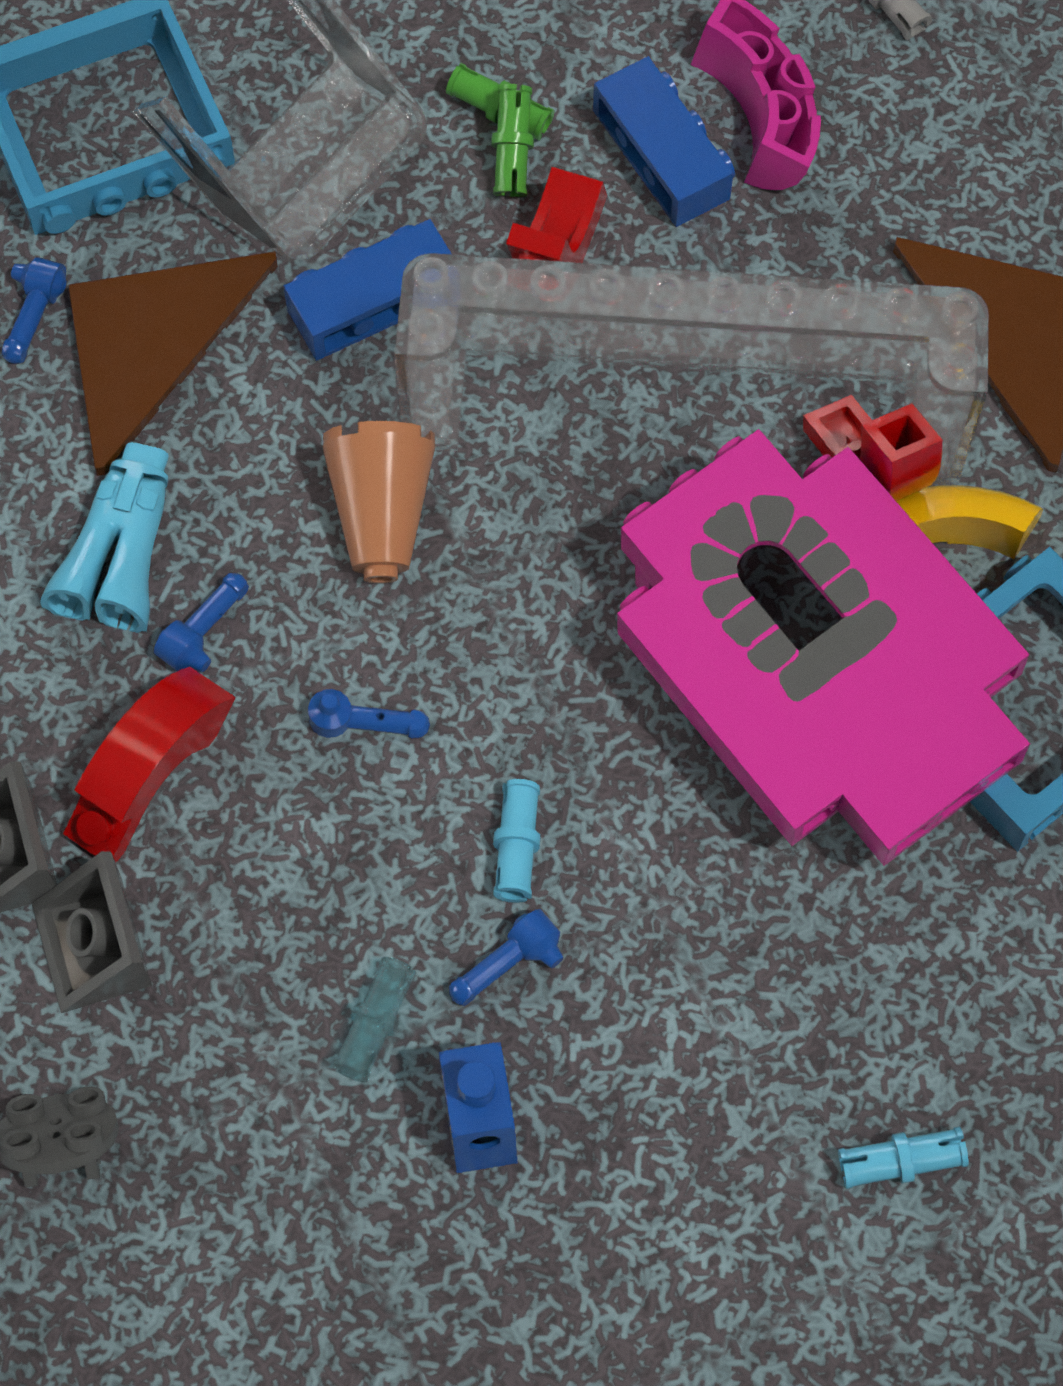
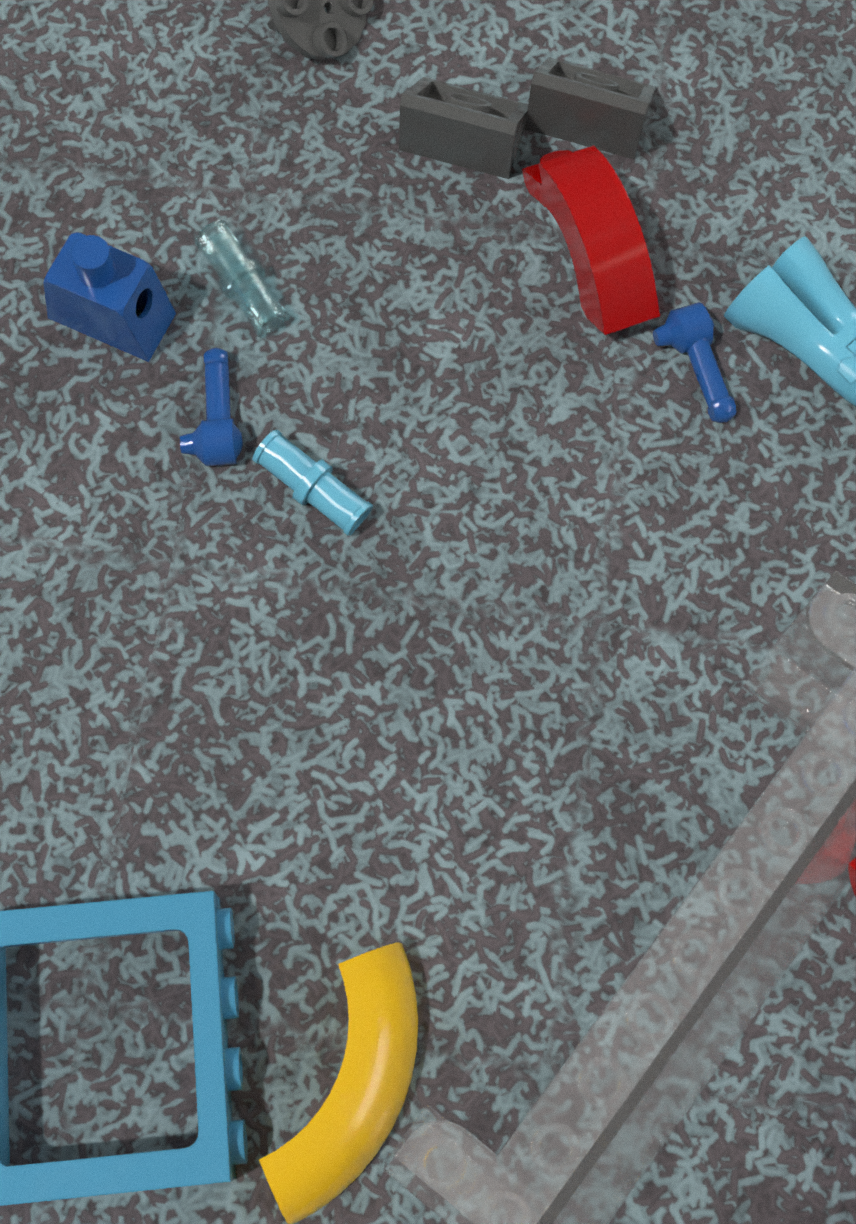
camera: 120 degrees right, 5 degrees up
(333, 714) = (540, 414): blue piece -> none
(379, 492) = (729, 567): nougat cone -> none
(870, 716) = (168, 848): dark pink panel -> none
(895, 448) = (459, 1066): red arch -> none

